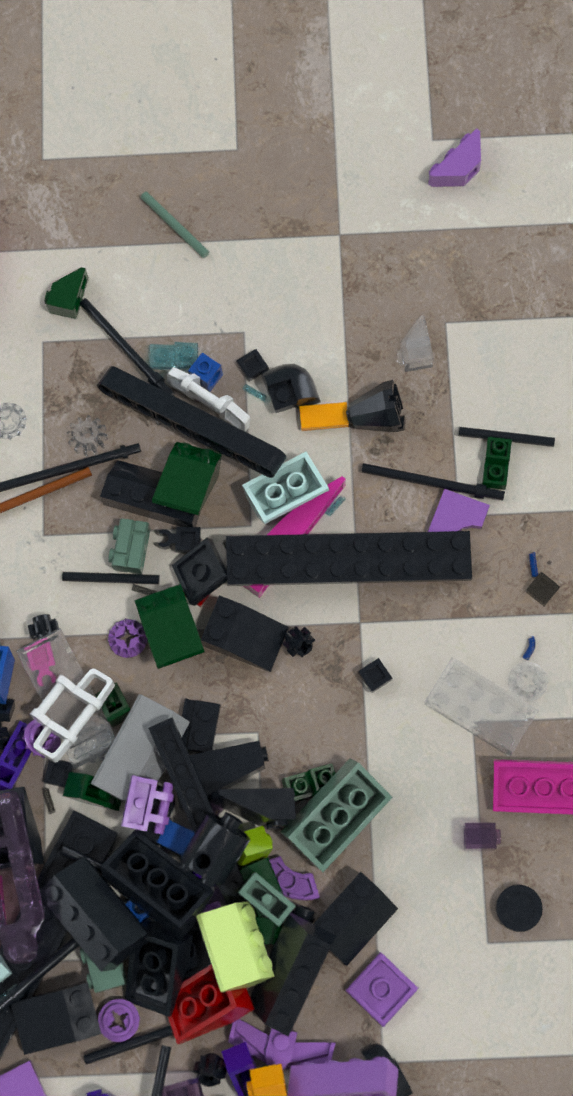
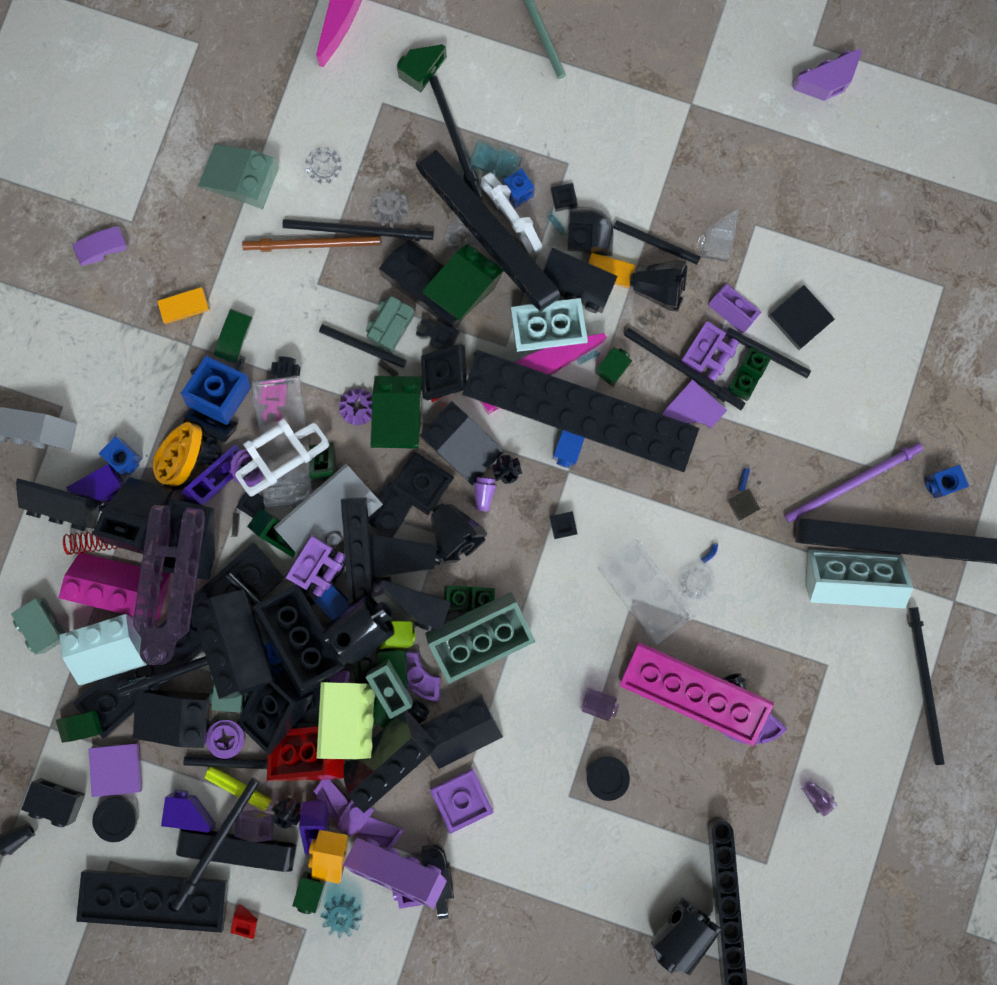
camera: 15 degrees right, 10 degrees up
(148, 1066) = (236, 787): none -> neon yellow axle
(163, 446) = (454, 242): none -> clear gear
(220, 688) = (421, 483): none -> black tile
(272, 722) = (455, 533): none -> black cone
(285, 673) = (484, 491): none -> medium lavender cone
(299, 434) = (580, 280): none -> black slope
(351, 600) = (568, 449): none -> blue brick
(358, 373) = (656, 242): none -> black bar
(363, 504) = (614, 366): none -> dark green brick
(443, 453) = (703, 348): none -> medium lavender plate
(457, 407) = (734, 308): none -> medium lavender slope
(525, 392) = (801, 317): none -> black tile

